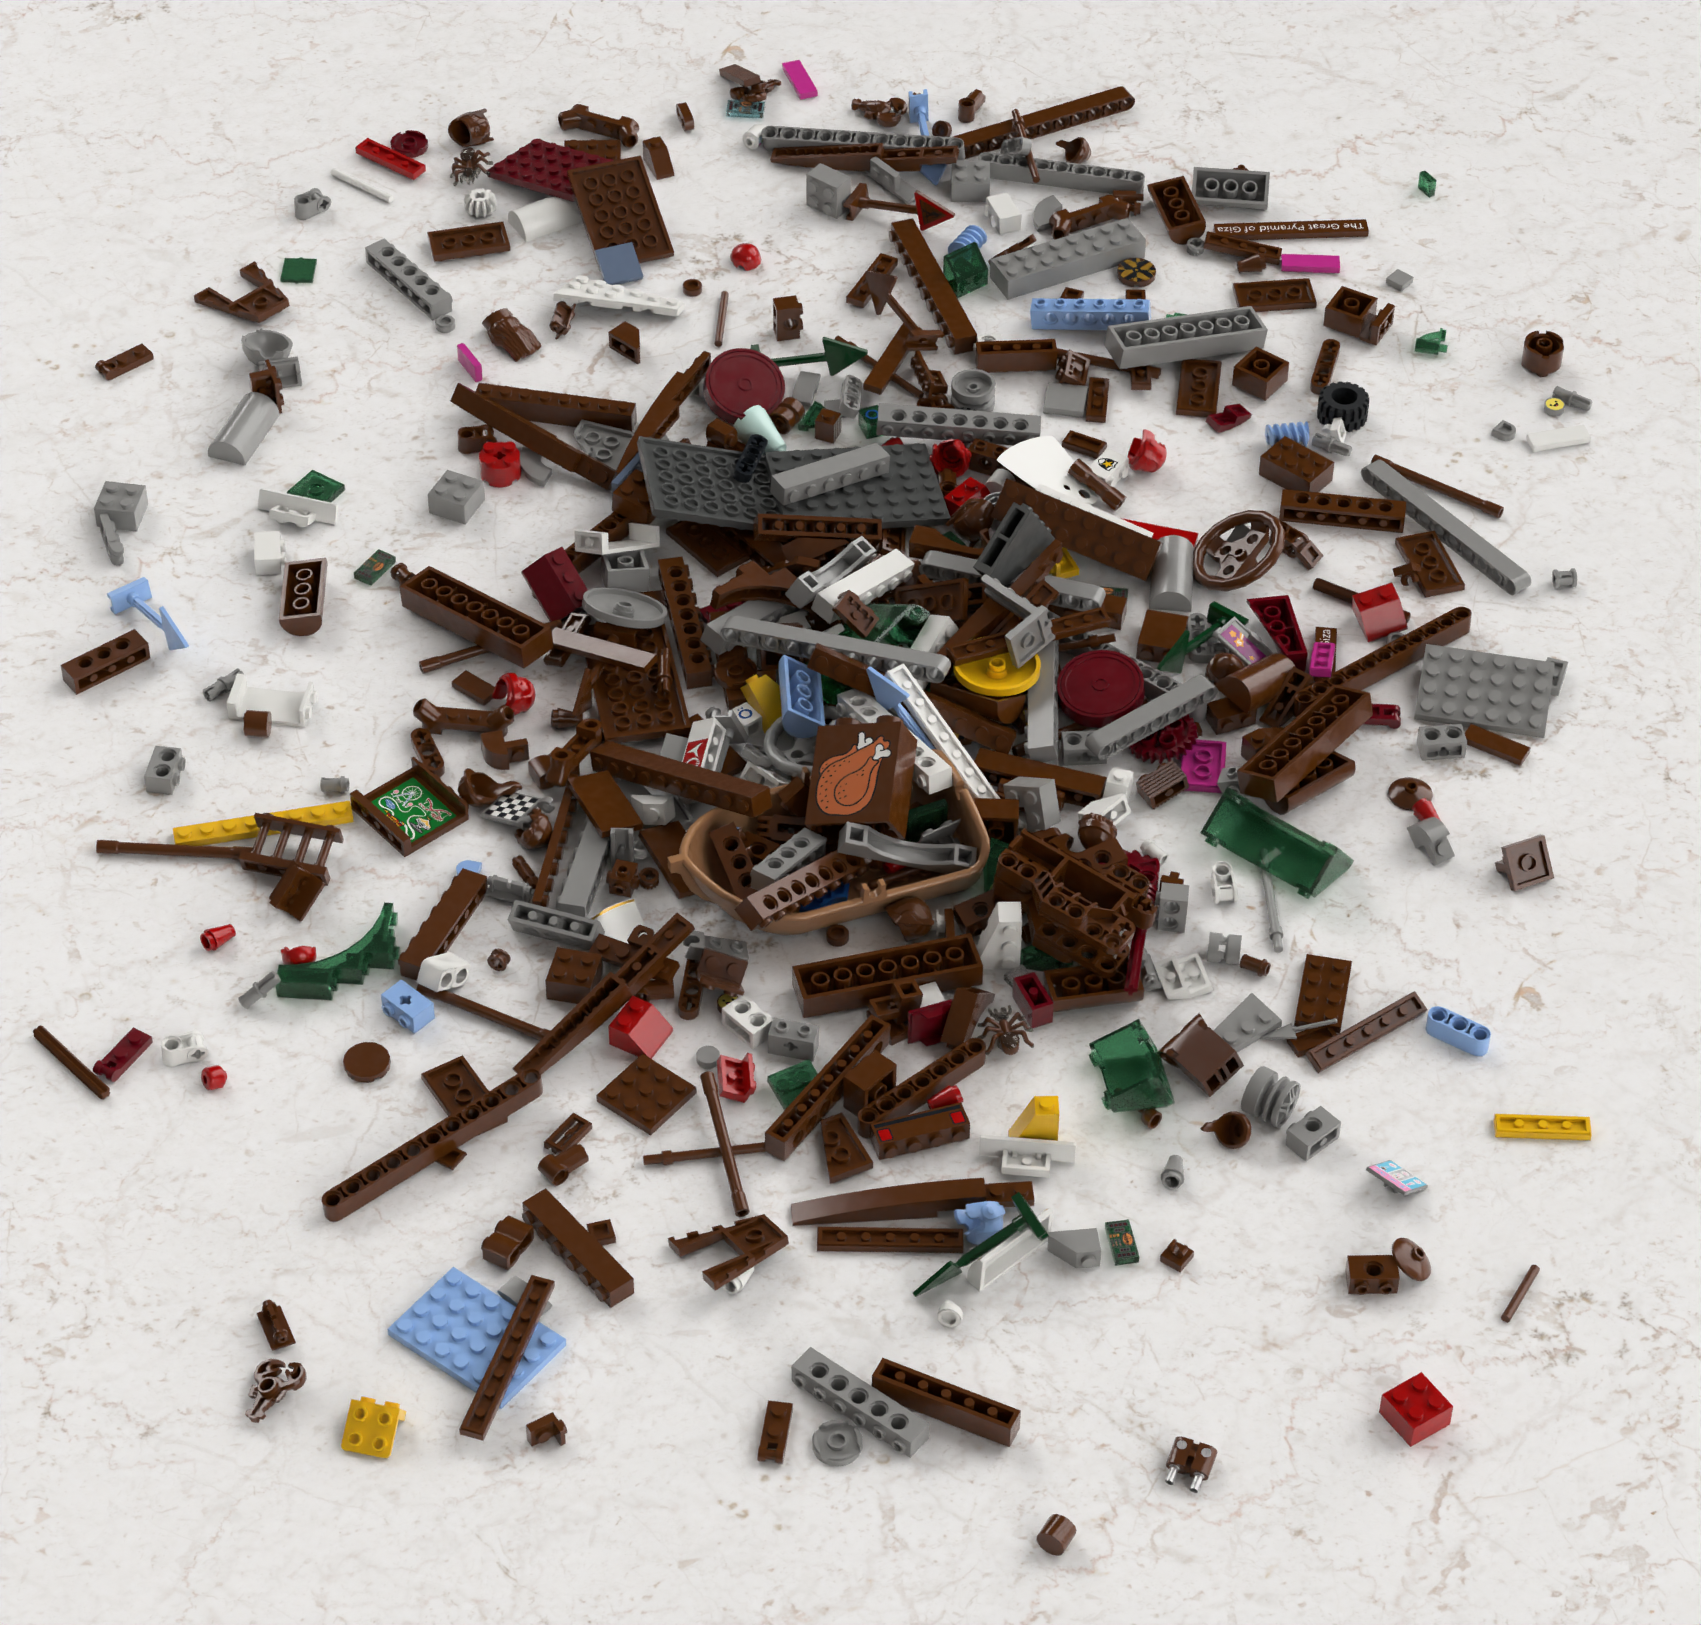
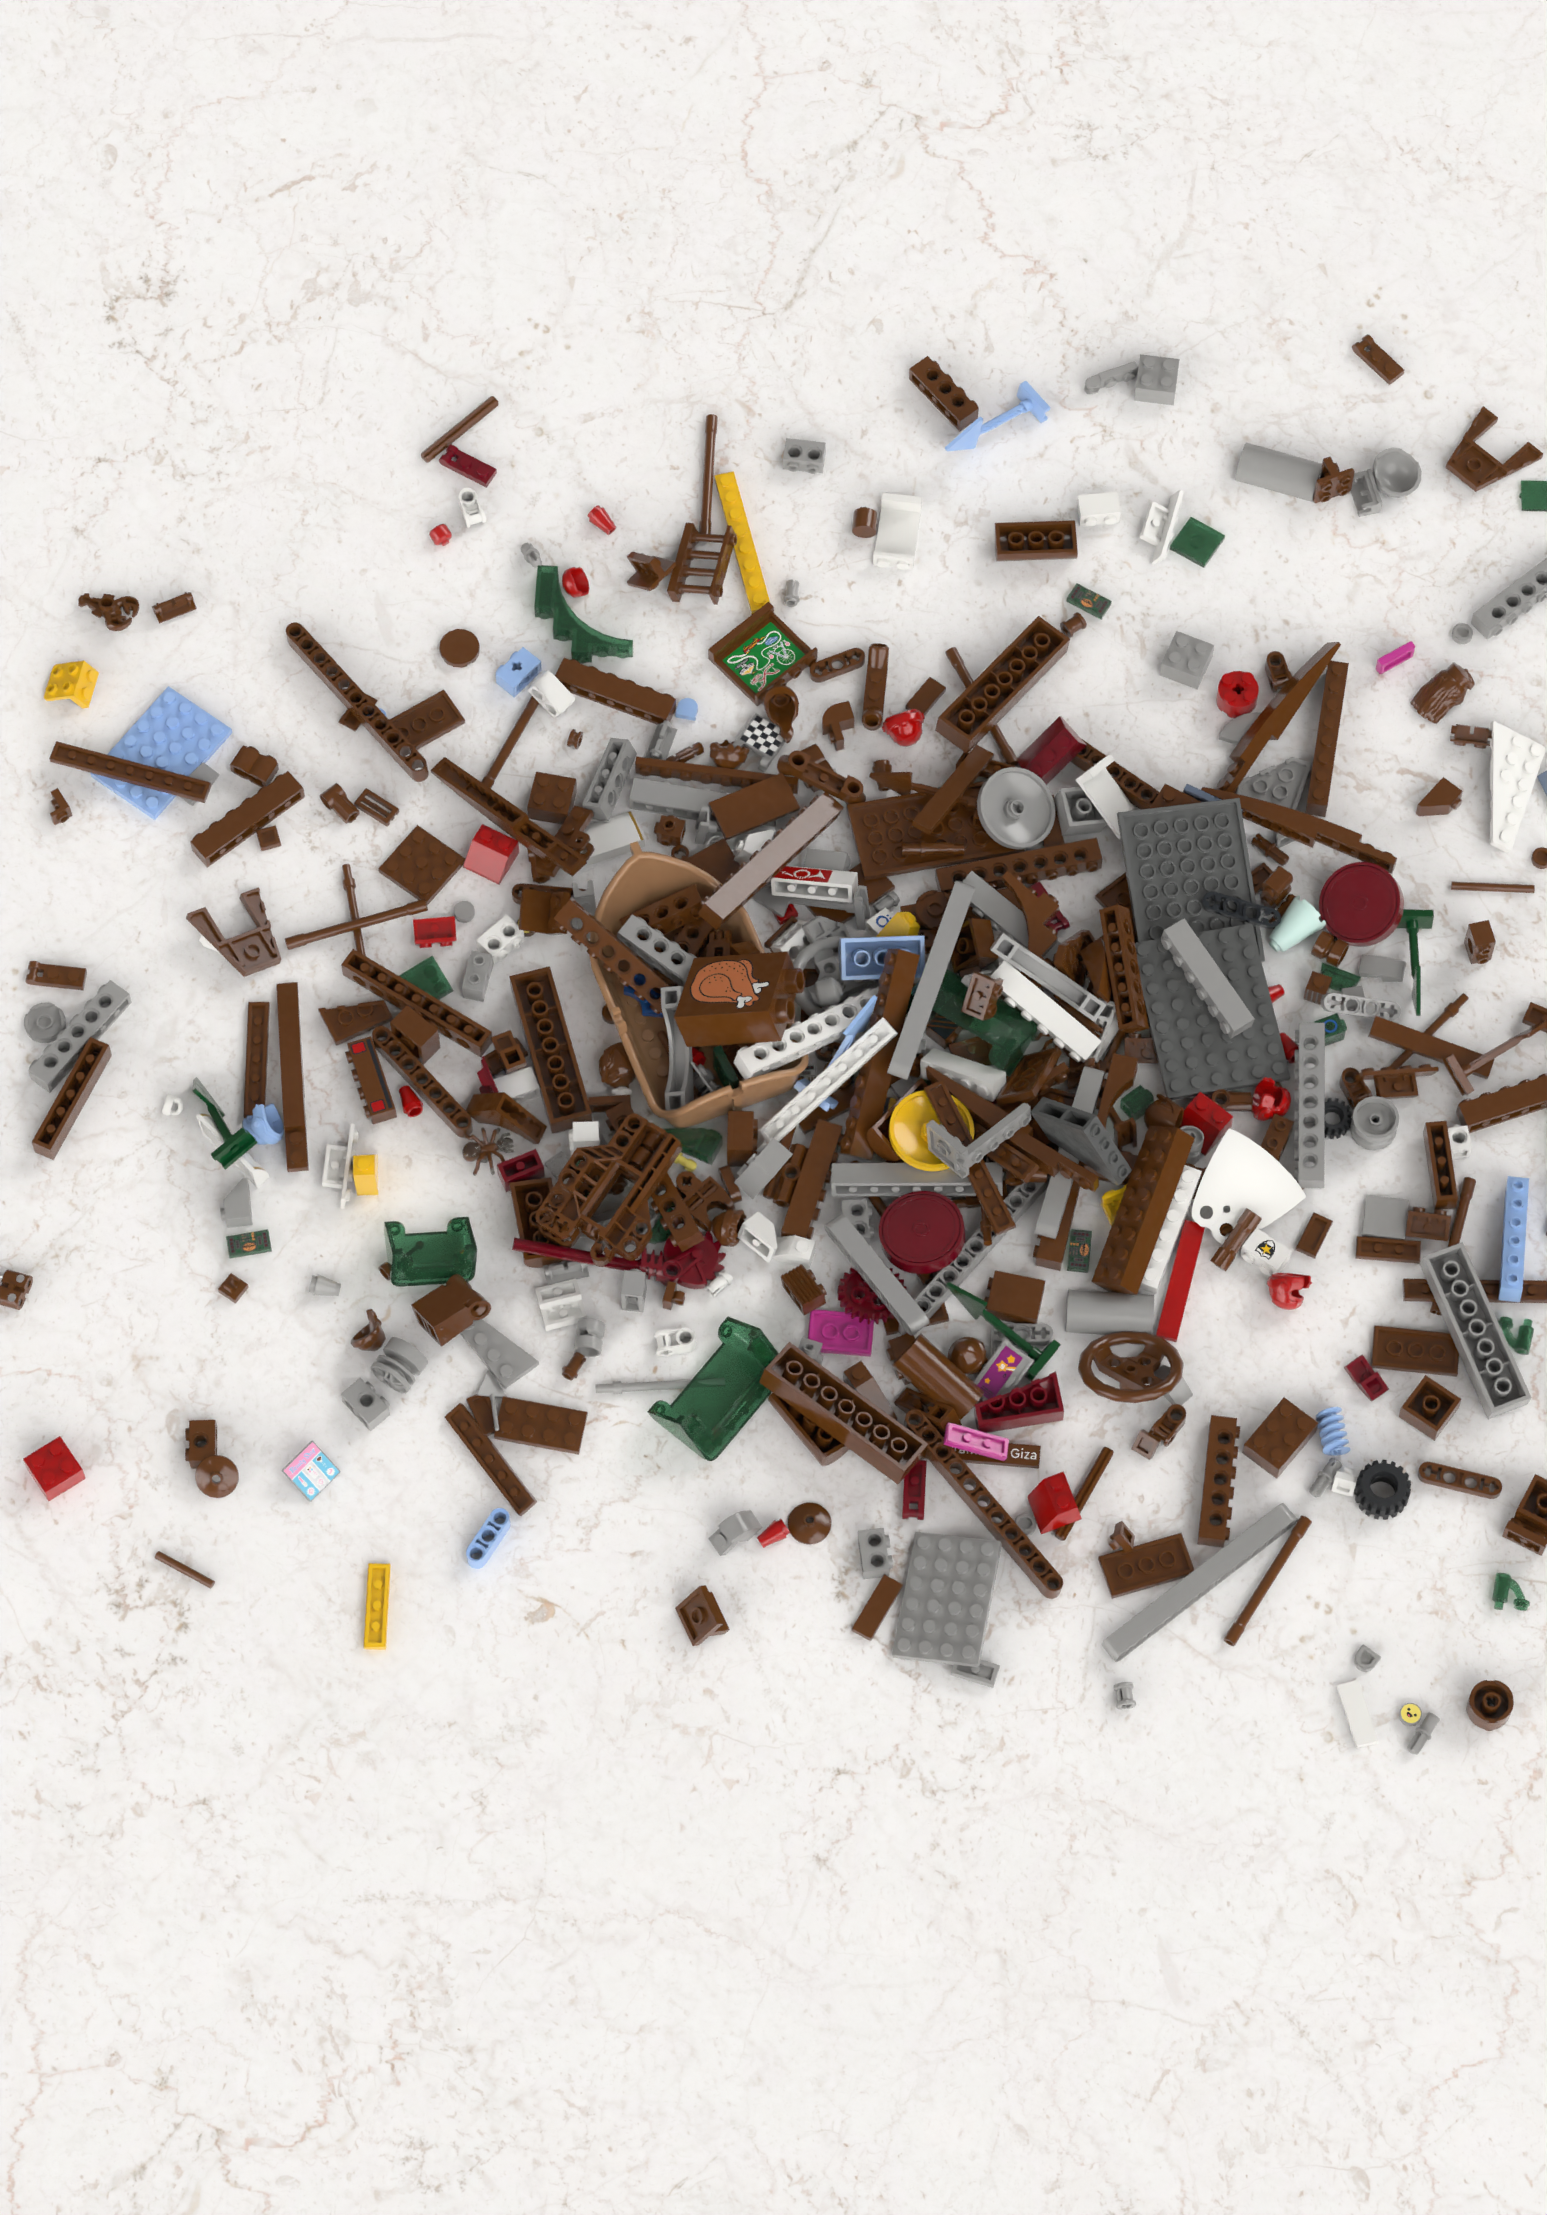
camera: 90 degrees right, 20 degrees up
(222, 685) = (920, 491): light grey pin -> none

